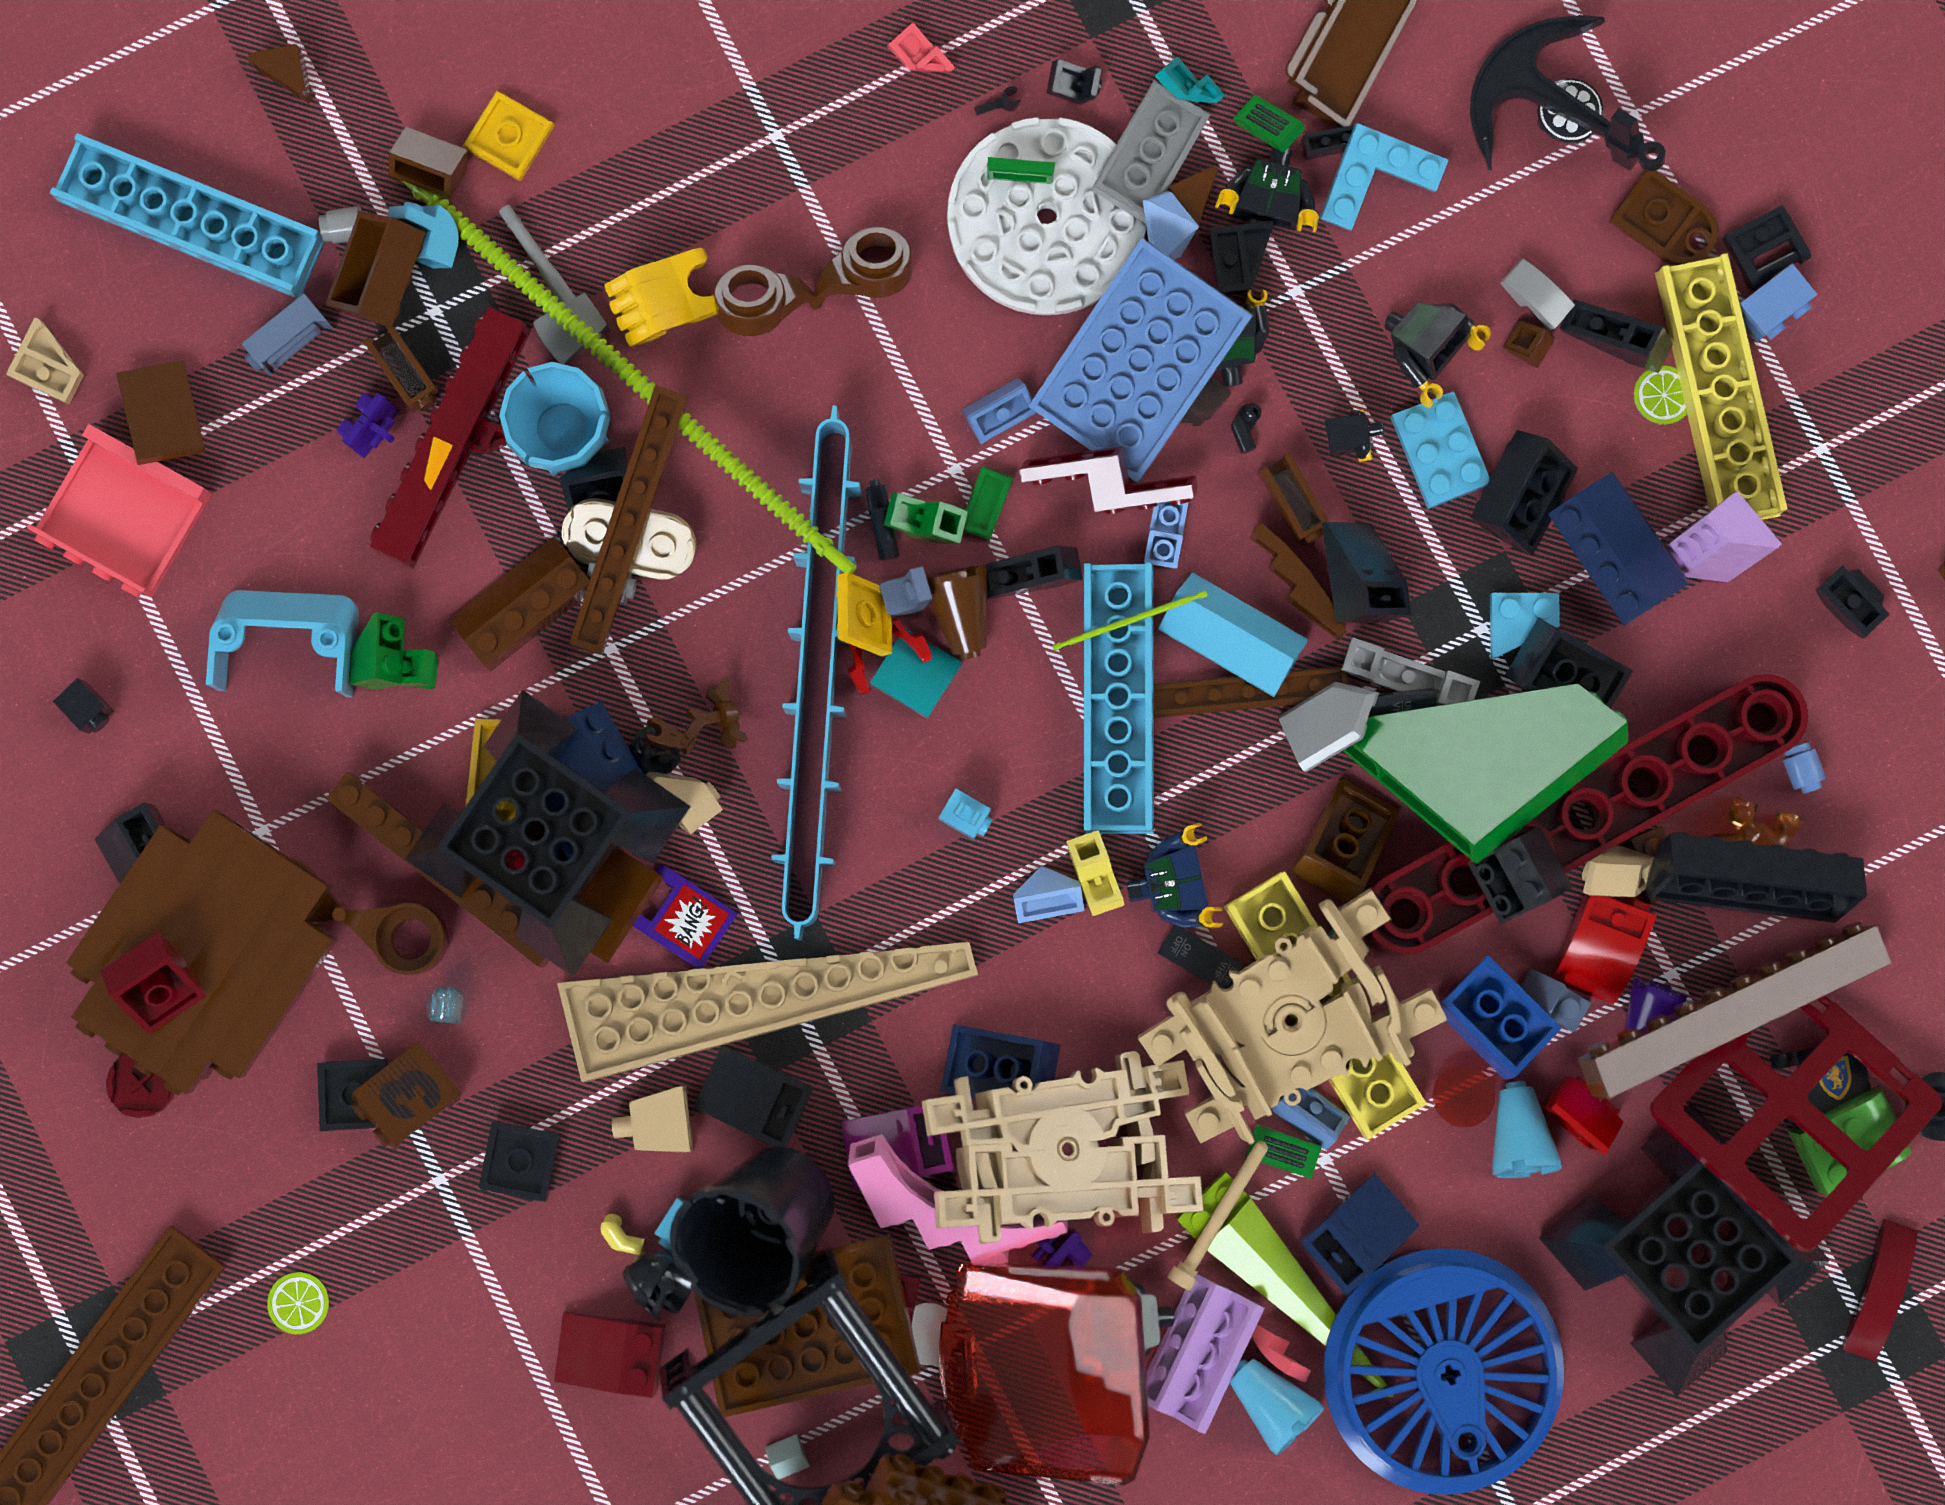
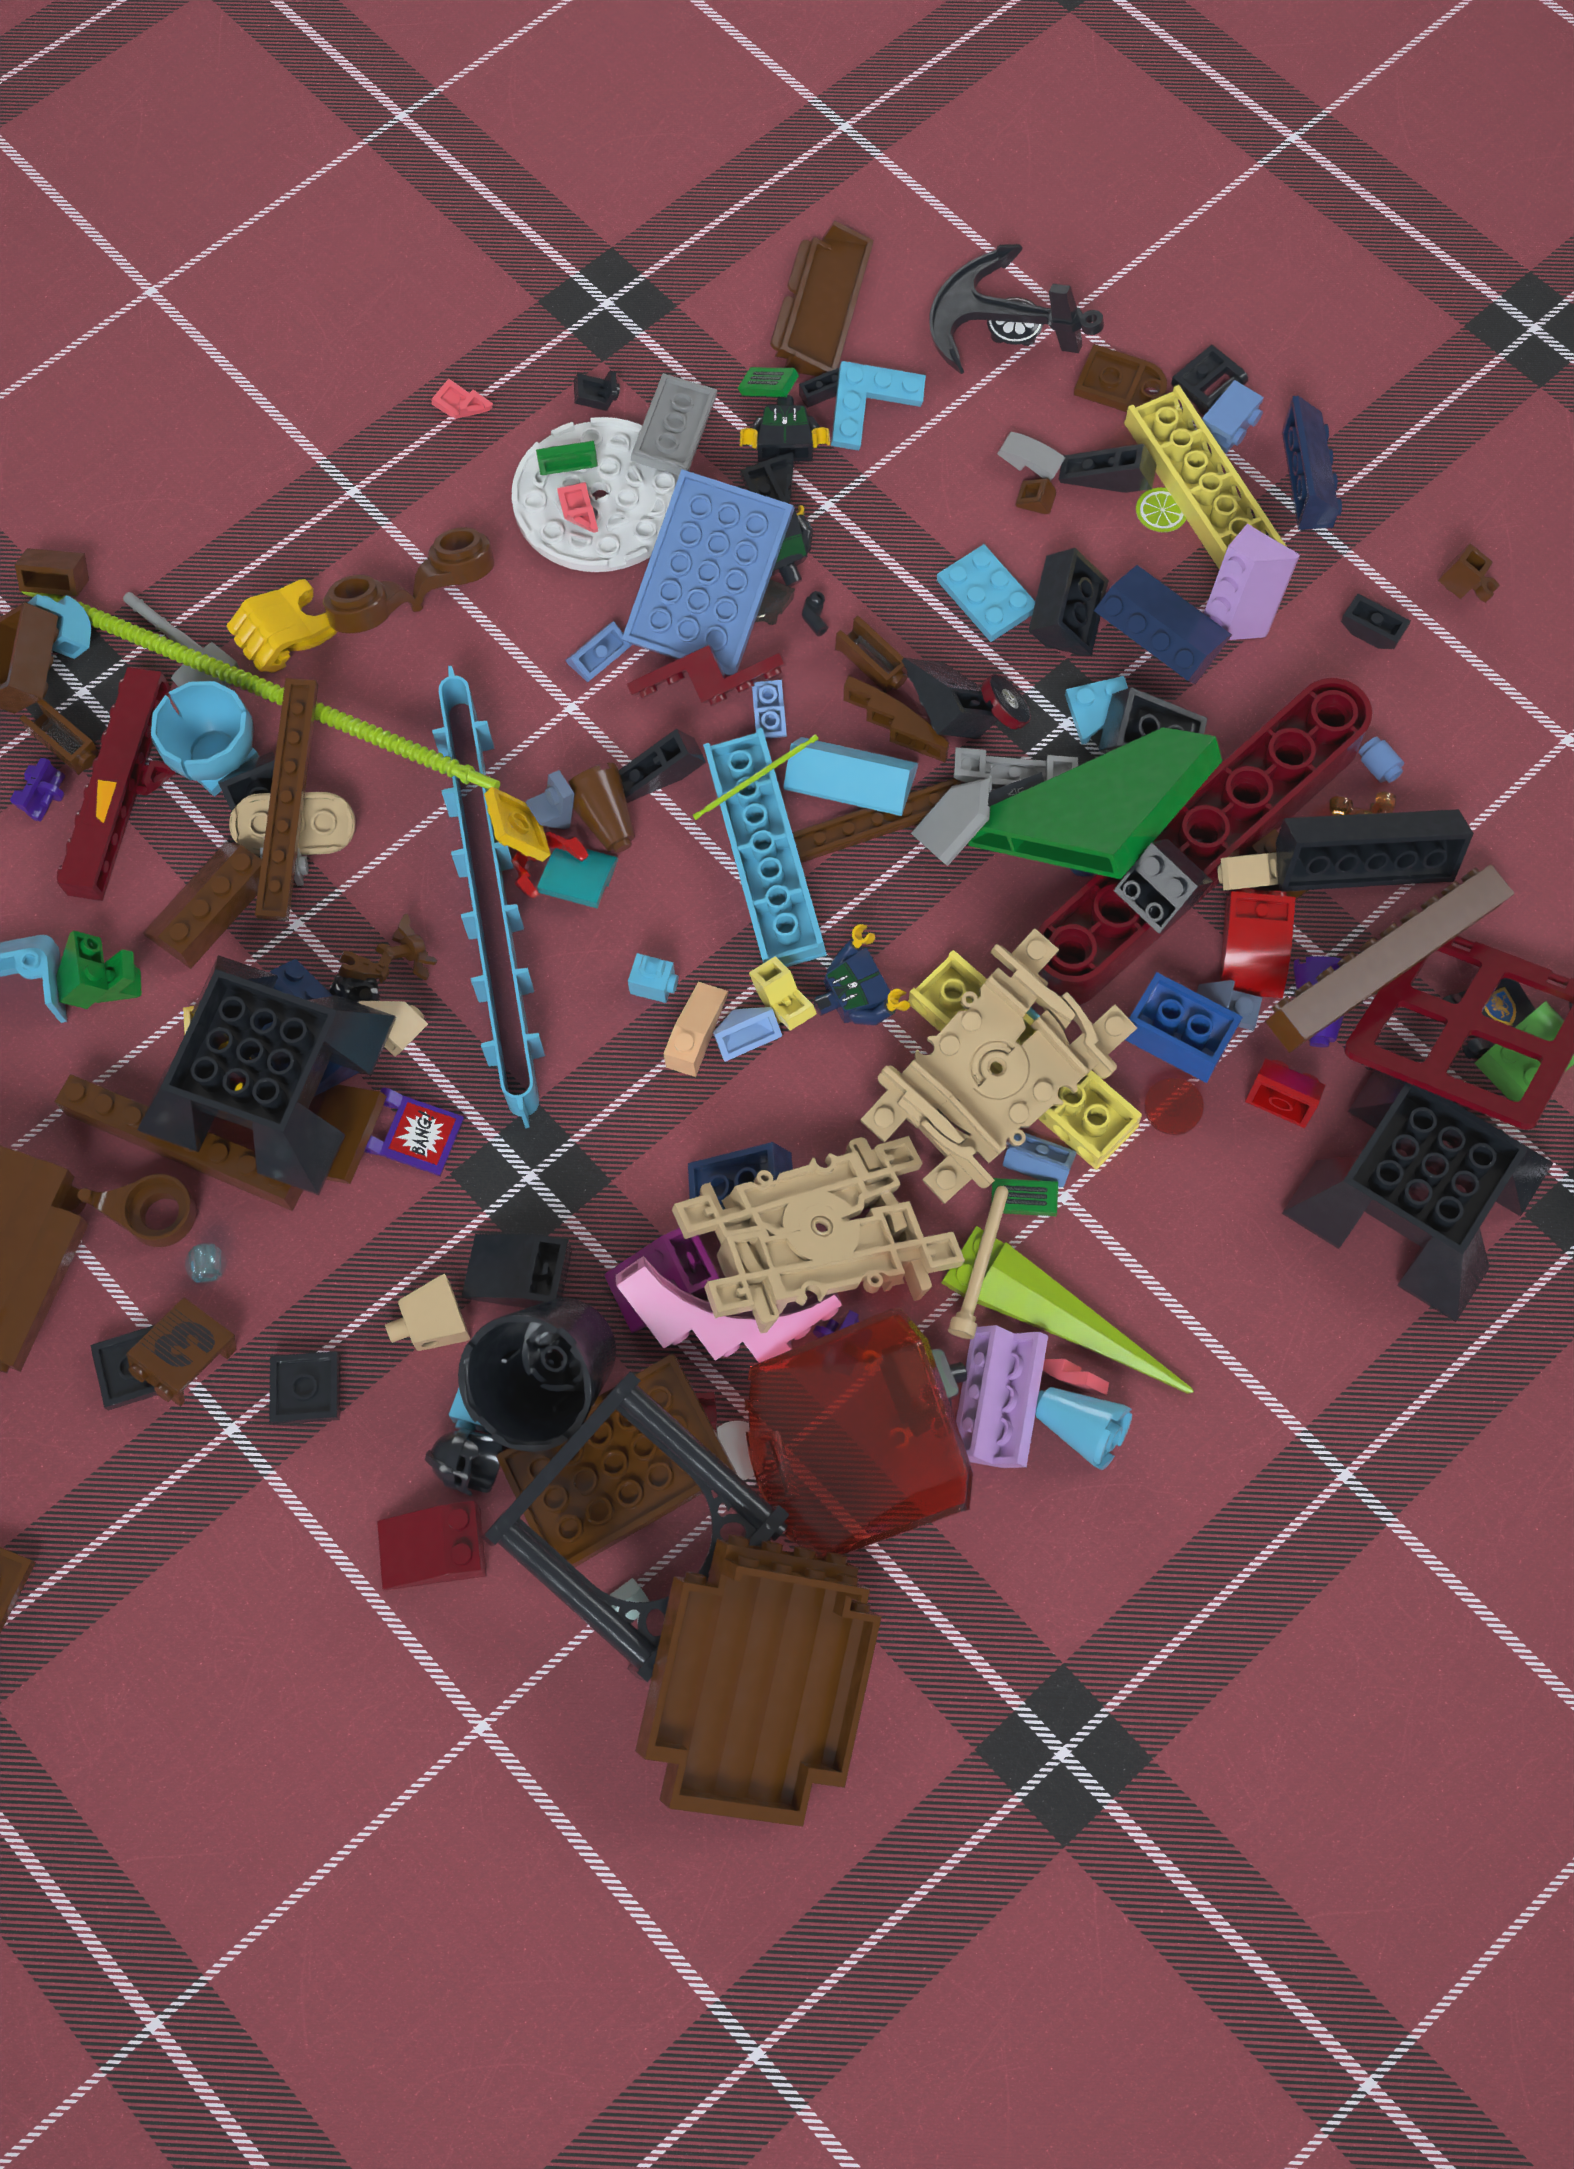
camera: 15 degrees left, 15 degrees down
(298, 1303) = (113, 1581): lime sticker -> none
(508, 135) = (120, 541): yellow tile -> none
(616, 1237) = (414, 1435): light yellow arm -> none
(674, 1014) = (424, 1217): tan wing -> none
(878, 505) = (516, 759): black piece -> none
(926, 520) = (555, 749): green brick -> none
(986, 503) = (605, 726): green tile -> none
(998, 879) = (694, 1029): none -> light nougat slope
(1000, 102) = (543, 421): black hand -> none
(1018, 232) = (577, 506): none -> coral slope
(1168, 224) = (704, 463): light blue slope -> none
(1185, 86) = (684, 370): teal slope -> none
(1194, 192) = (717, 451): reddish brown slope -> none
(1199, 957) = (892, 1047): black tile -> none
(1345, 841) = (999, 914): reddish brown slope -> none
(1352, 434) = (907, 594): black piece -> none
(1359, 1234) = (1114, 1250): dark blue slope -> none
(1422, 596) = (1008, 703): none -> tile
(1429, 340) = (951, 505): black torso -> none
(1453, 1404) = (1247, 1377): blue piece -> none
(1522, 1135) = (1239, 1124): medium azure cone -> none
(1842, 393) = (1310, 466): none -> dark blue slope

